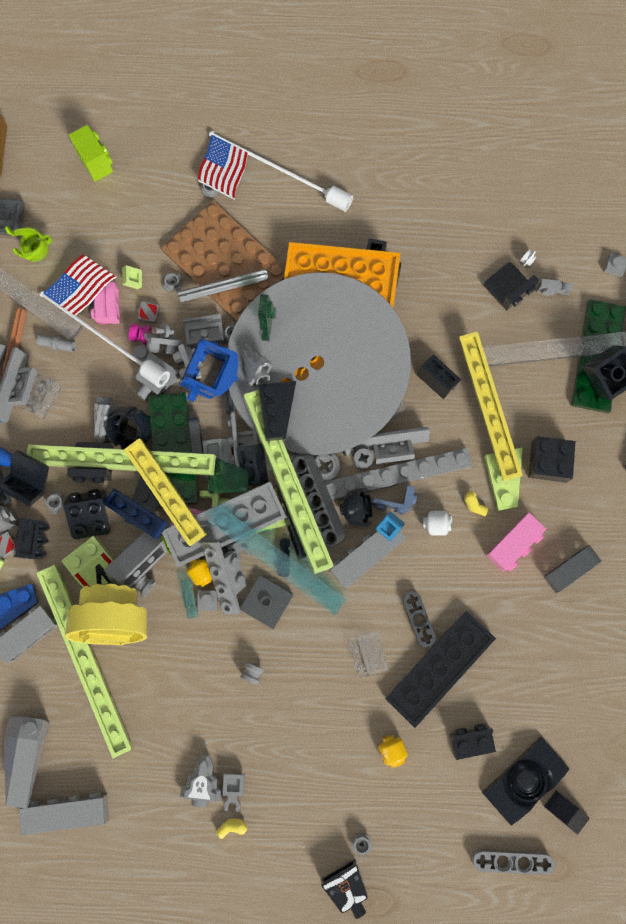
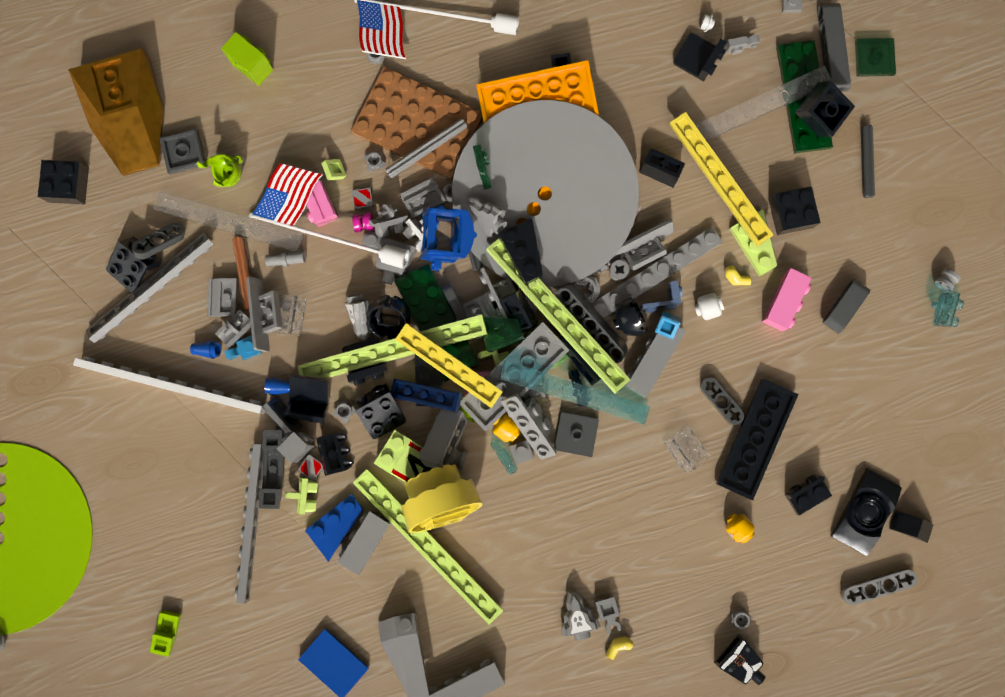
camera: 20 degrees left, 5 degrees up
(252, 673) = (587, 503): light grey wheel -> none

